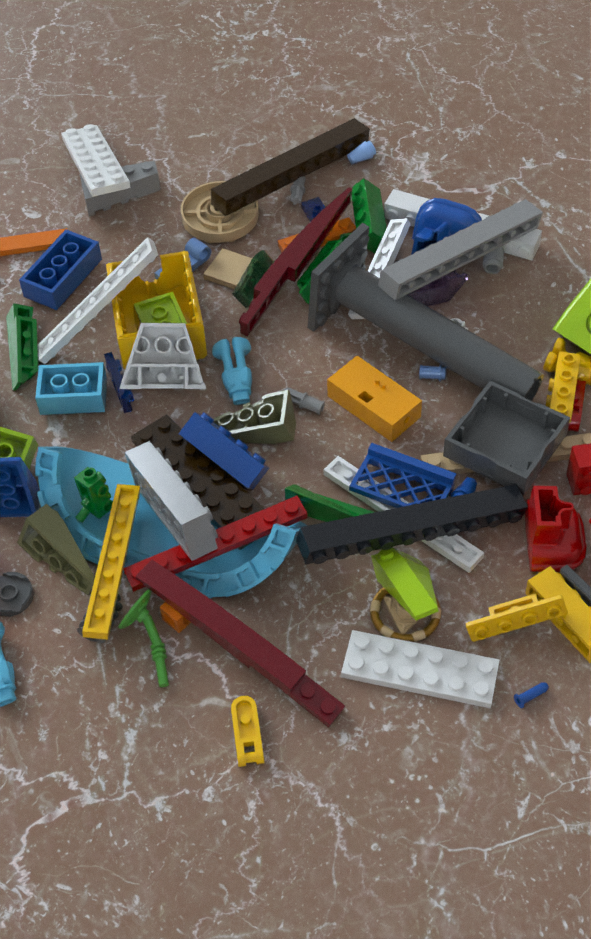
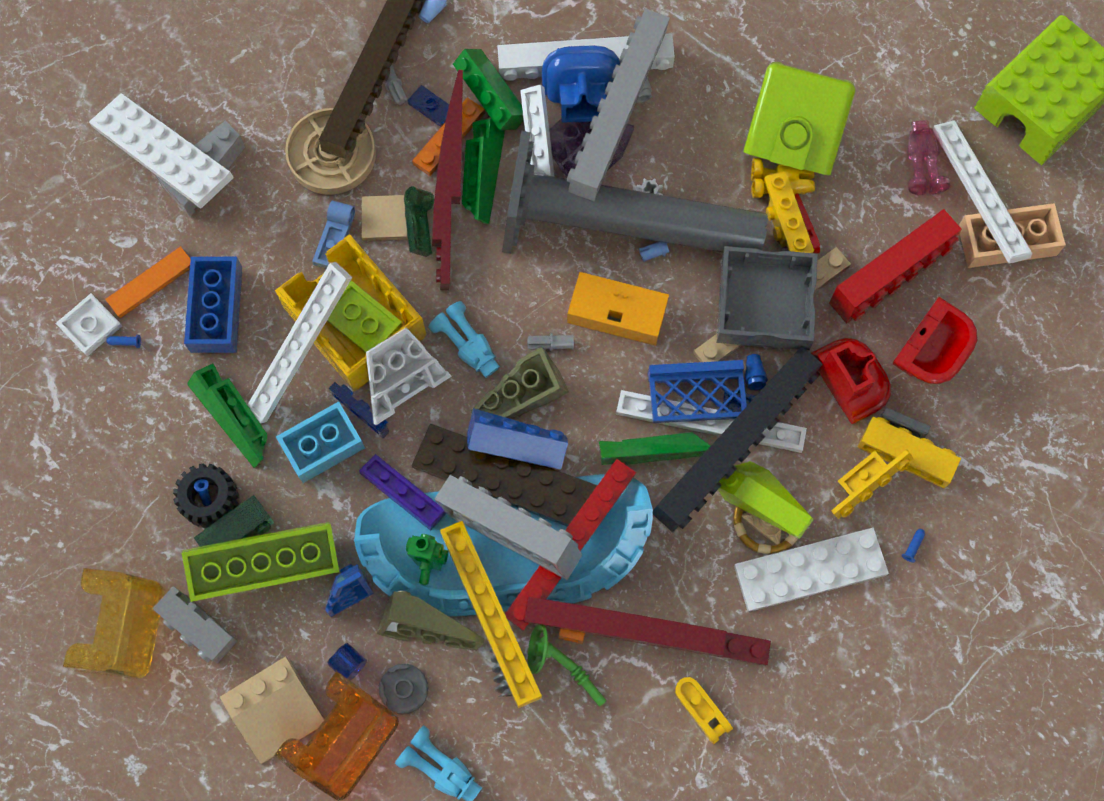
camera: 30 degrees left, 20 degrees up
(110, 452) = (402, 492): none -> dark purple tile

